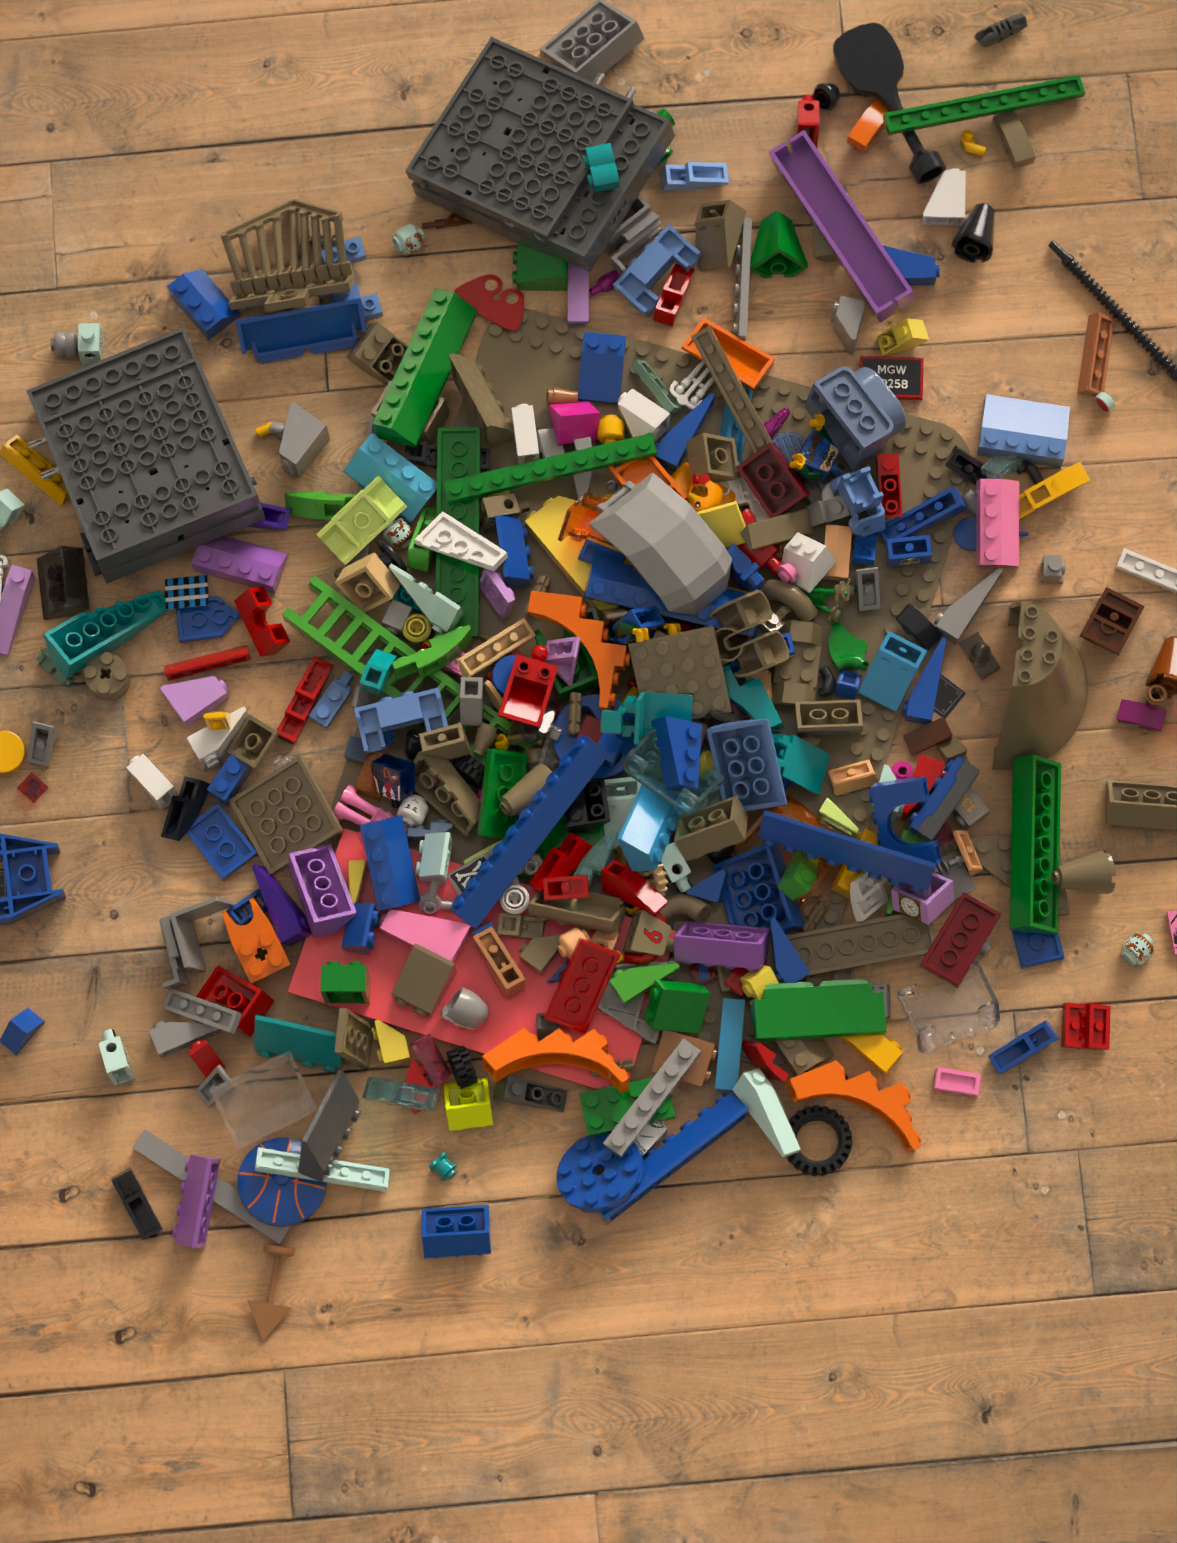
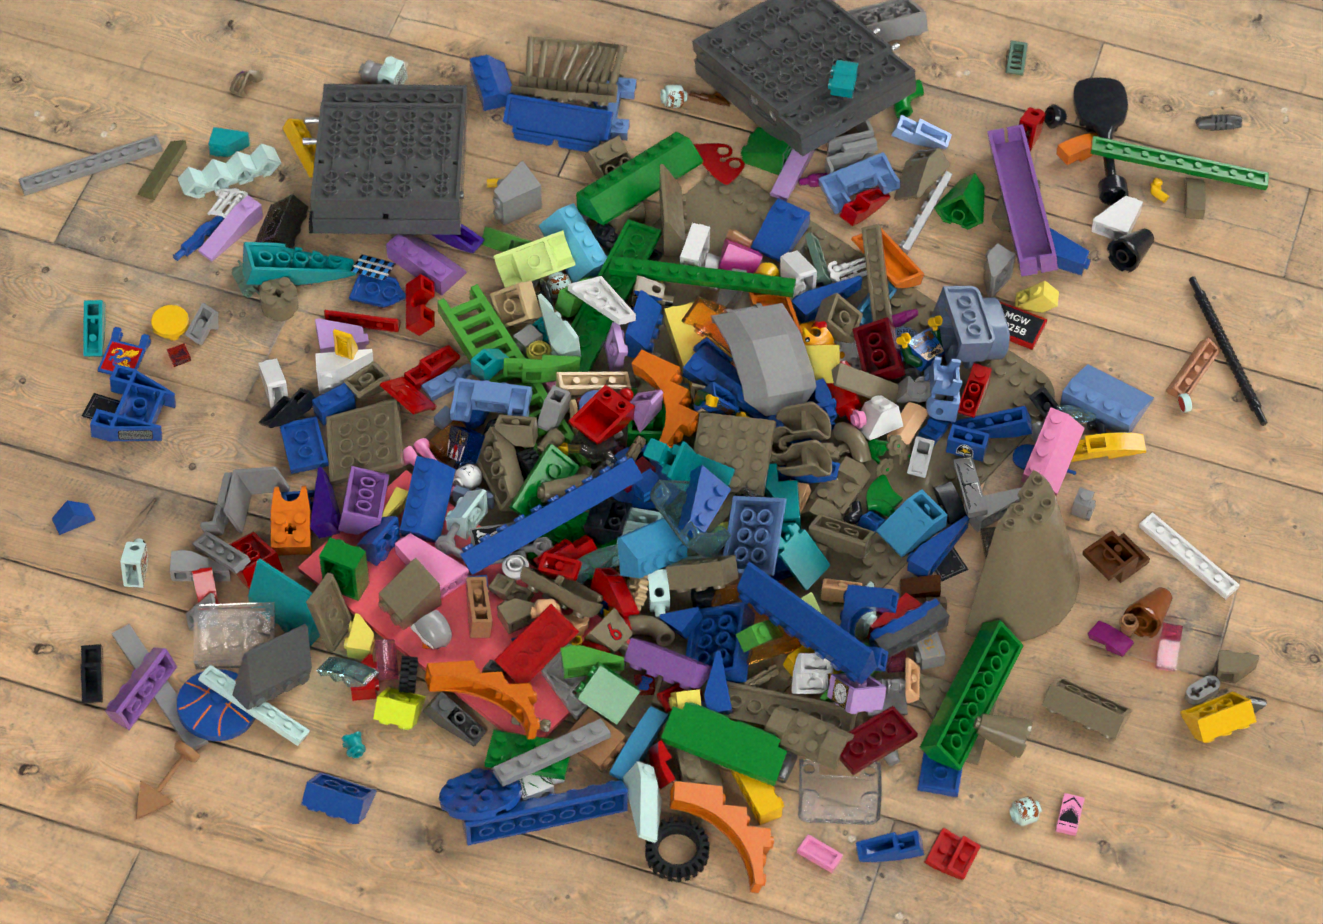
camera: 20 degrees right, 20 degrees down
(305, 742) = (408, 395): none -> red container
(755, 16) = (1017, 46): none -> sand green slope
(896, 964) = (808, 736): none -> dark tan piece
(932, 602) = (970, 487): none -> light grey tile

